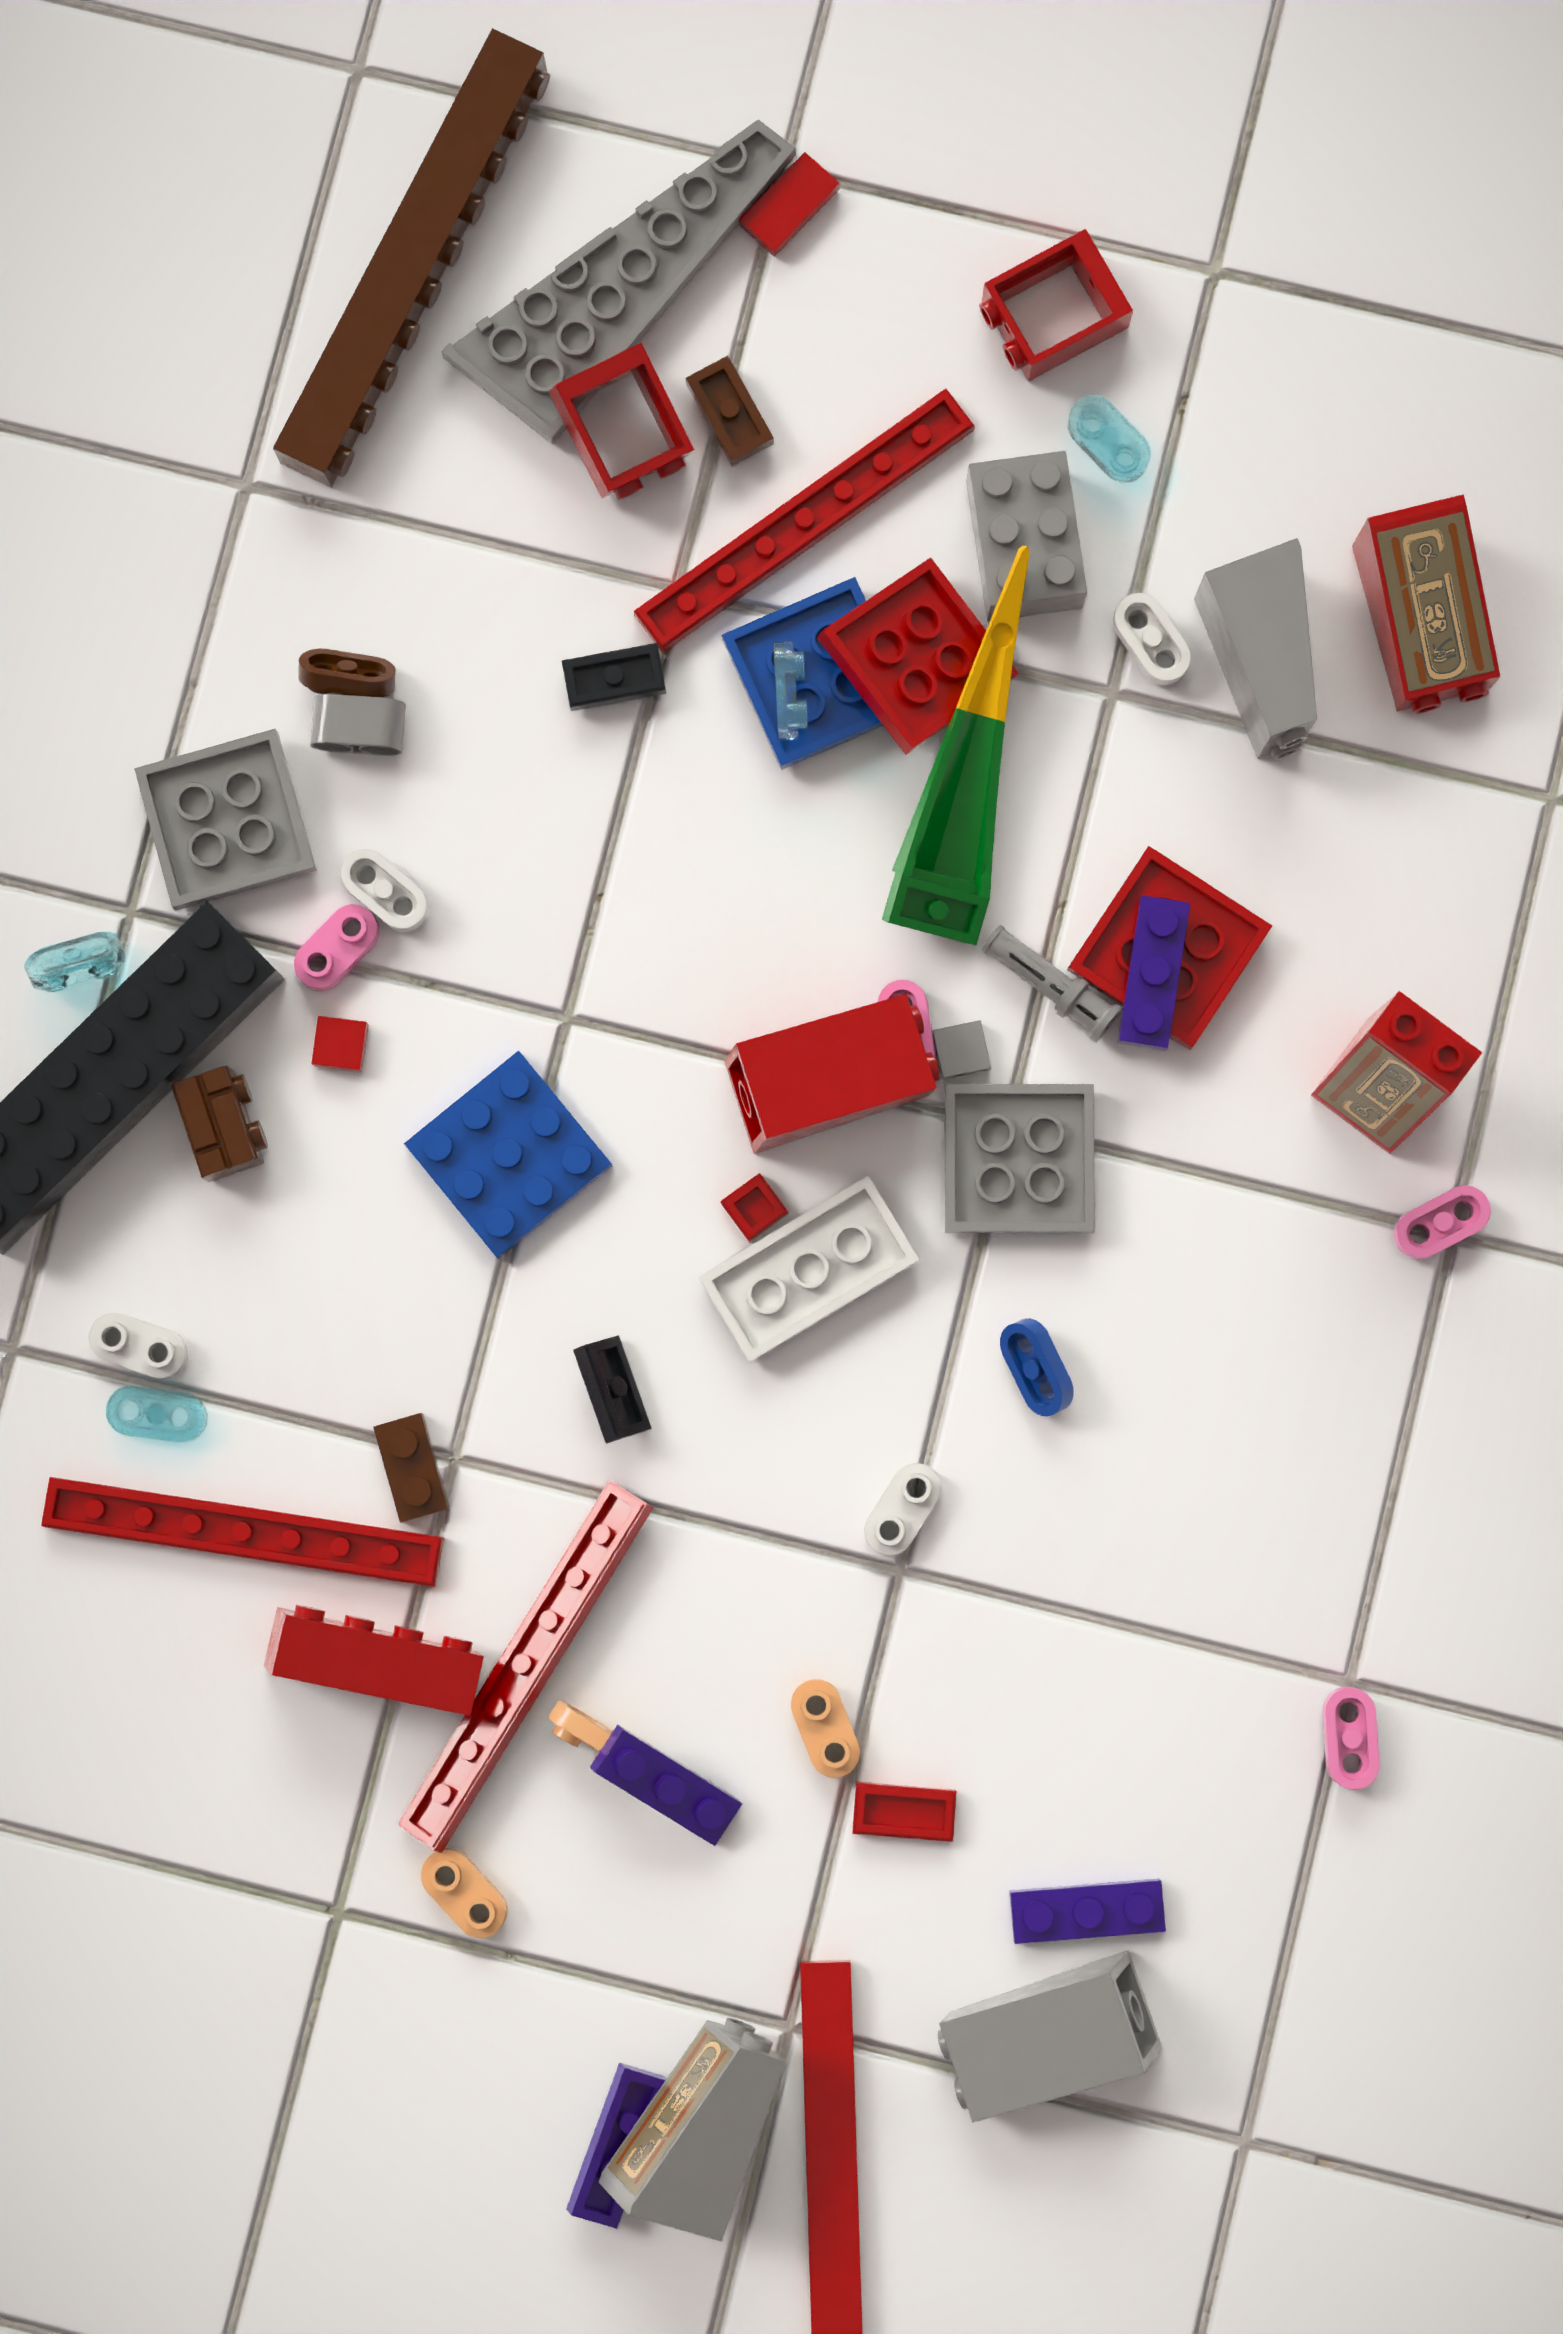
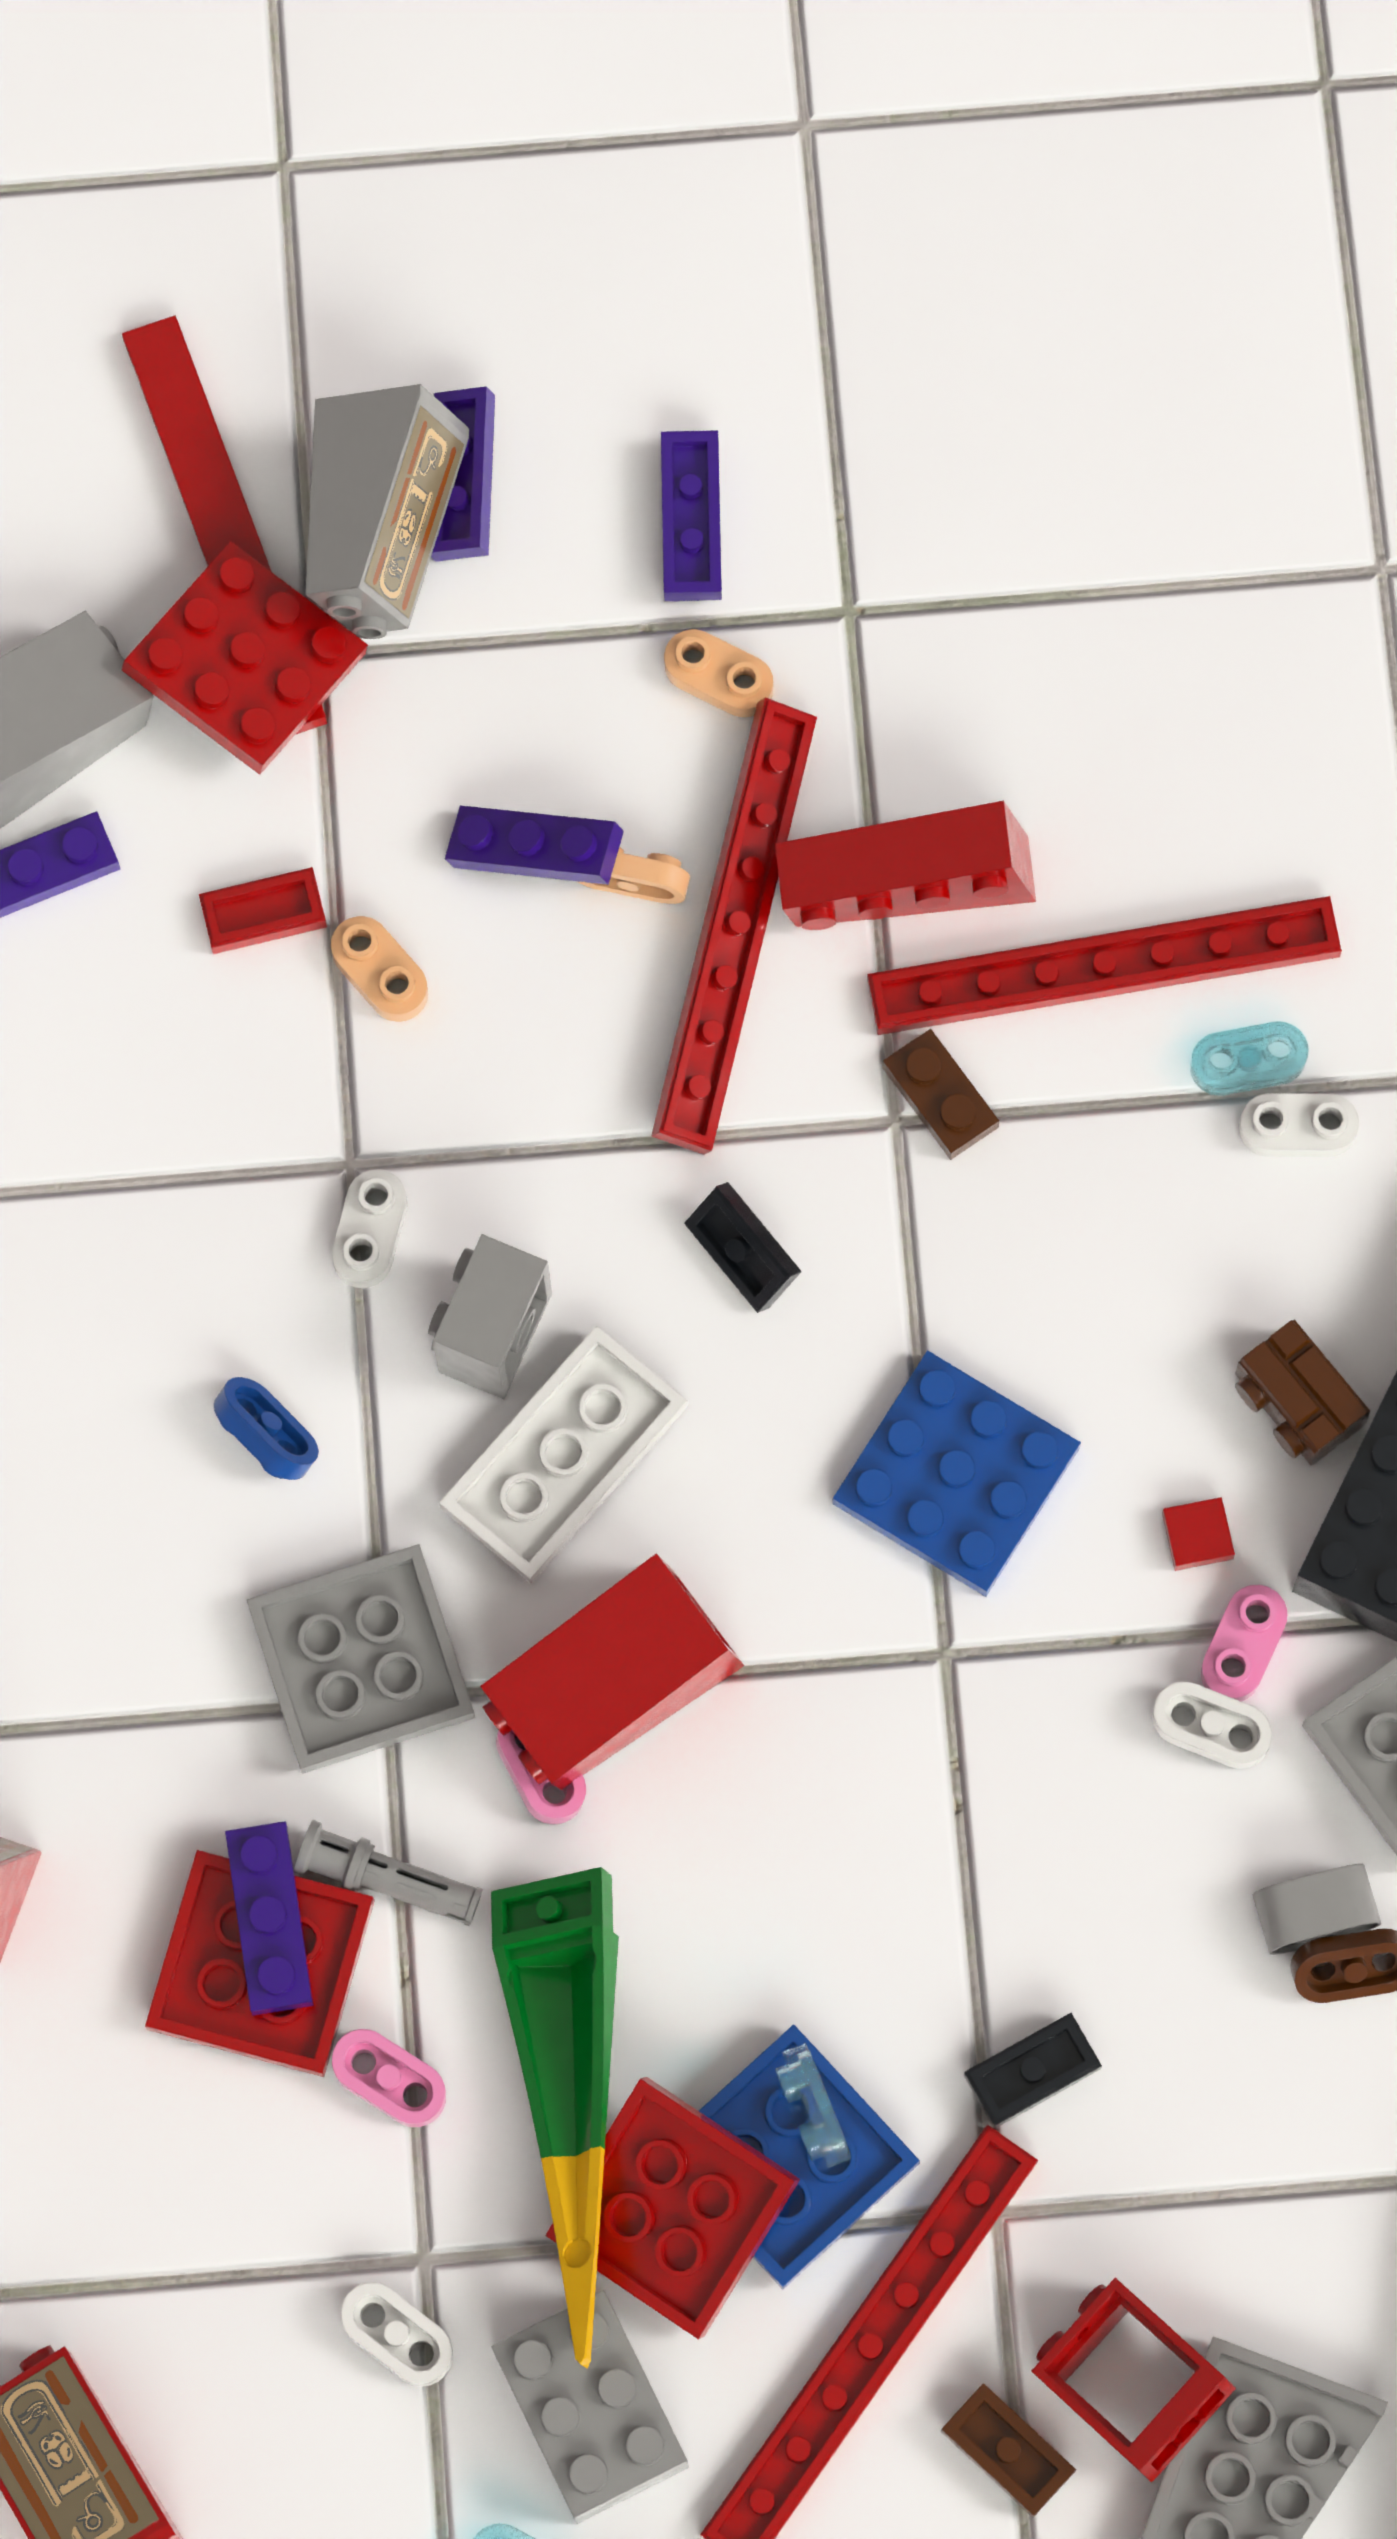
camera: 160 degrees right, 10 degrees down
(438, 2041) = (691, 515): none -> dark purple plate
(754, 1207) = (651, 1506): red tile -> none
(831, 1391) = (491, 1315): none -> light grey brick
(852, 2035) = (244, 657): none -> red plate
(961, 1049) = (469, 1765): light grey tile -> none
(1101, 828) = (390, 2079): none -> bright pink plate
(1263, 644) = (261, 2366): light grey slope -> none

